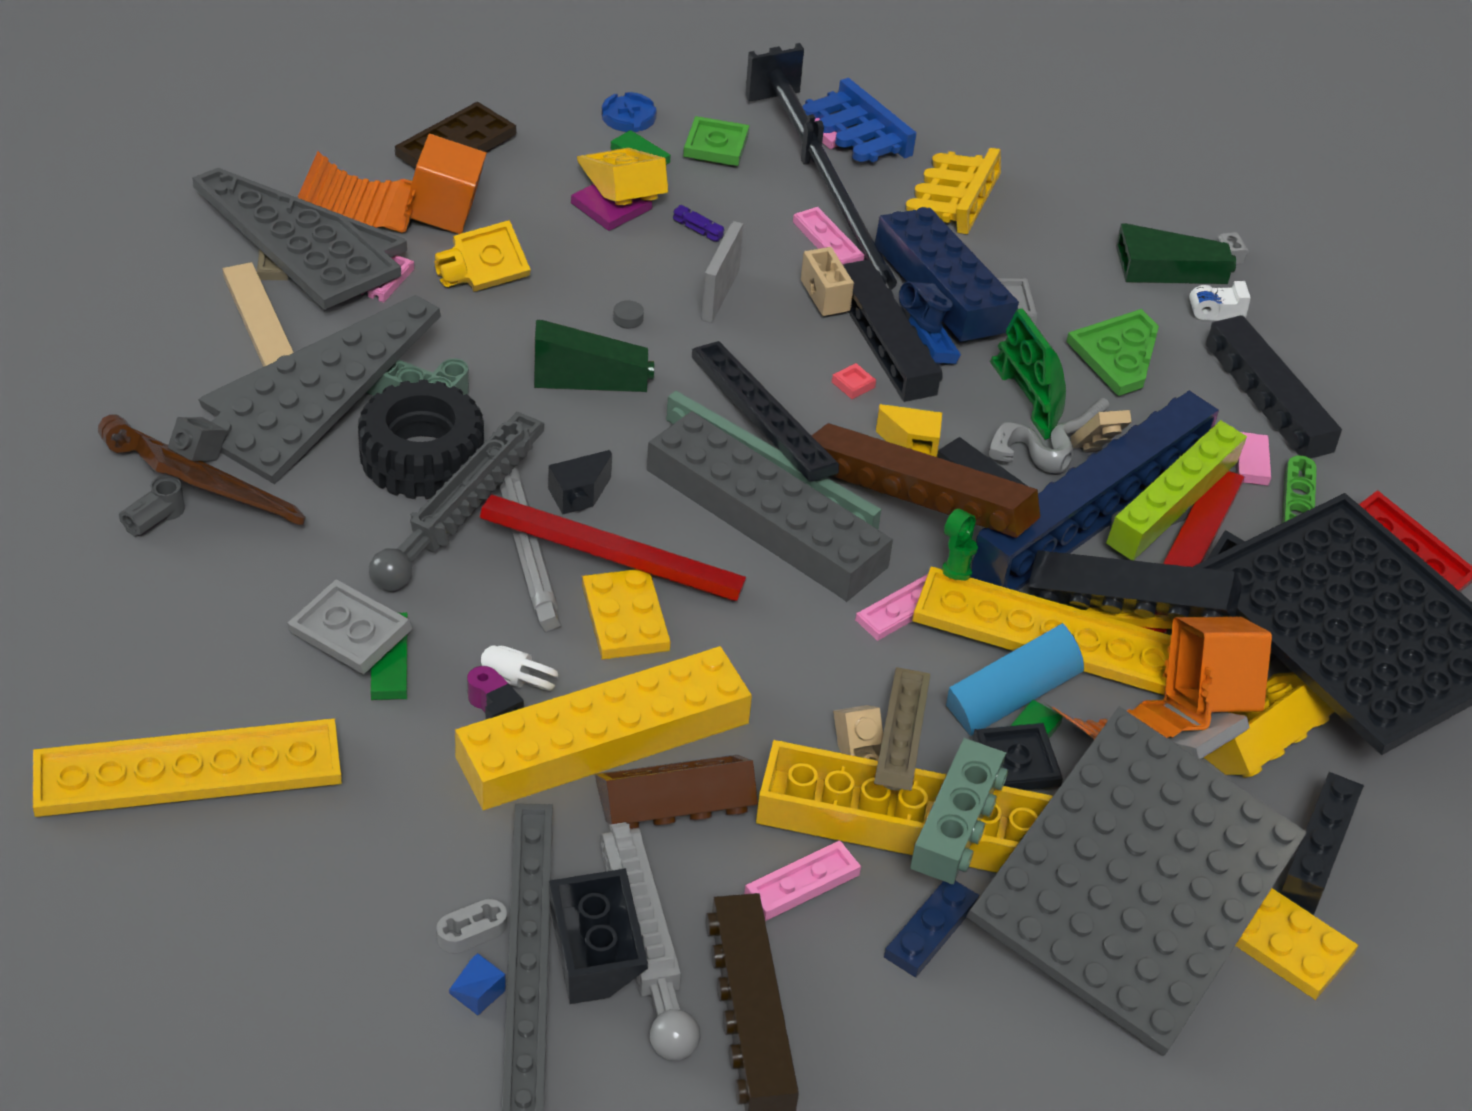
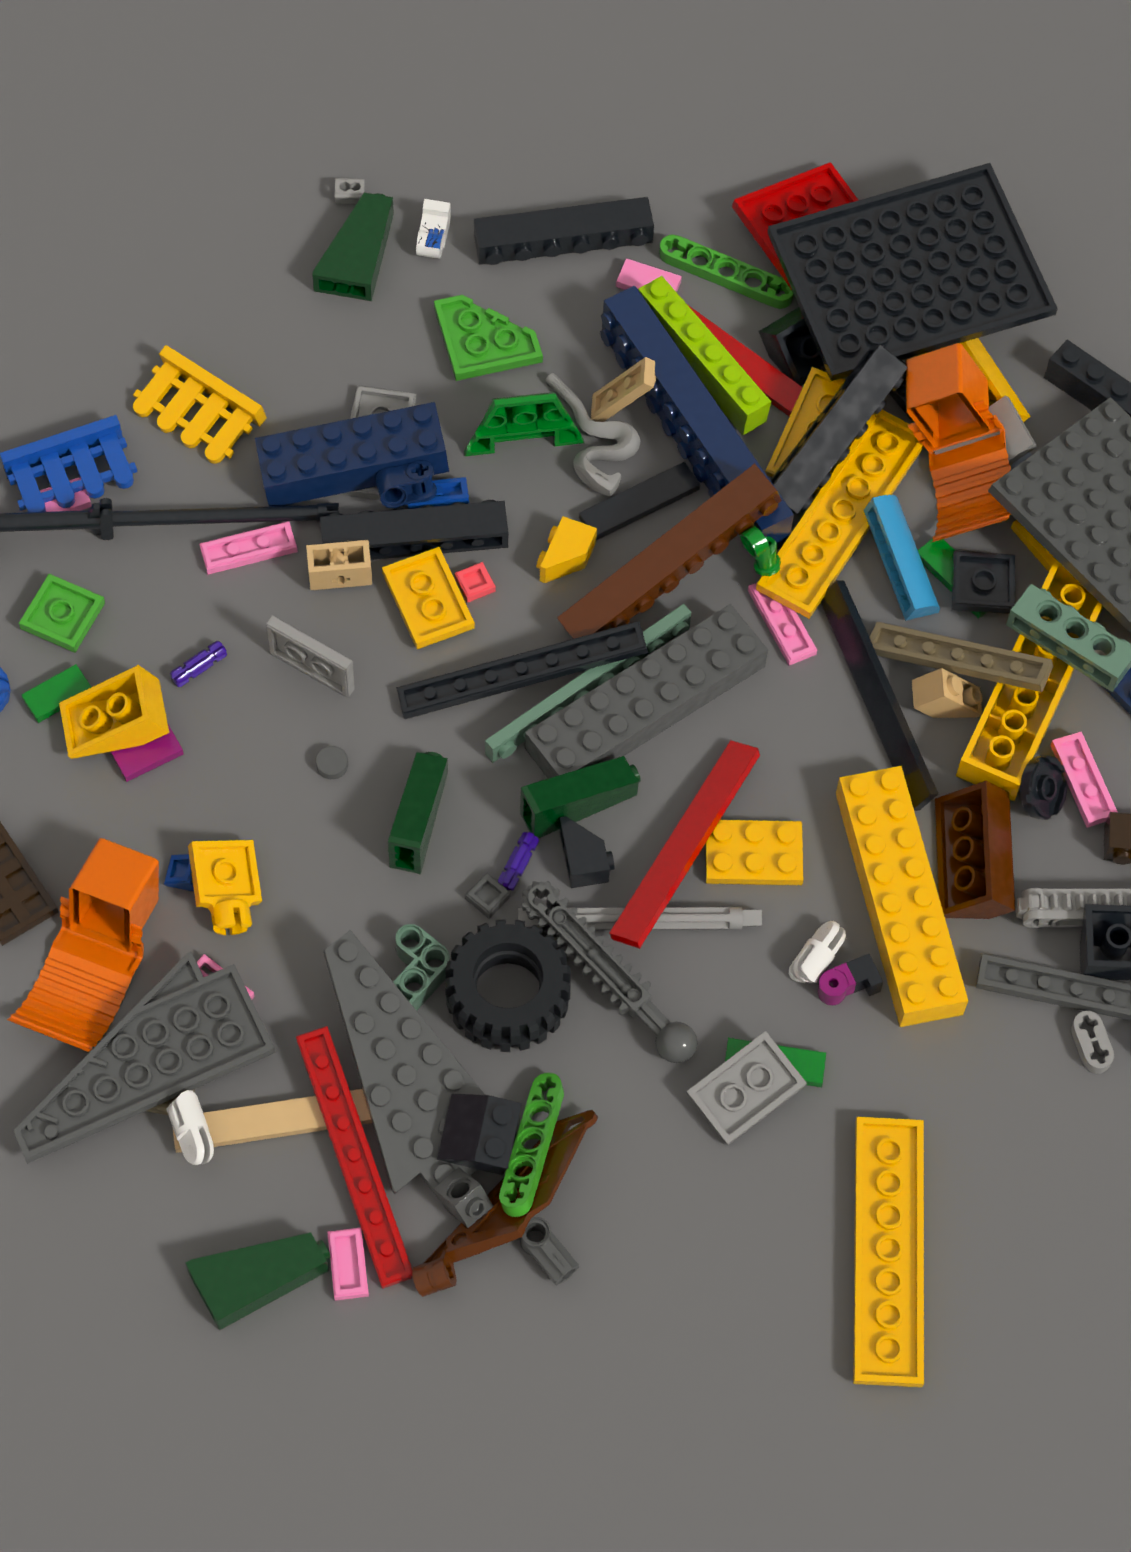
camera: 75 degrees left, 20 degrees up
(104, 326) = (256, 1275): none -> dark green slope
(128, 387) = (348, 1264): none -> bright pink tile
(192, 386) = (354, 1157): none -> red tile
(238, 263) = (191, 1128): none -> white arm
(257, 474) = (533, 1157): none -> bright green beam
(259, 437) = (479, 1132): none -> black slope
(562, 443) = (518, 860): none -> dark purple axle
(640, 461) = (577, 794): none -> dark green slope
(772, 831) = (1043, 787): none -> black tile
(821, 348) = (428, 598): none -> yellow plate
(838, 685) = (877, 693): none -> black tile

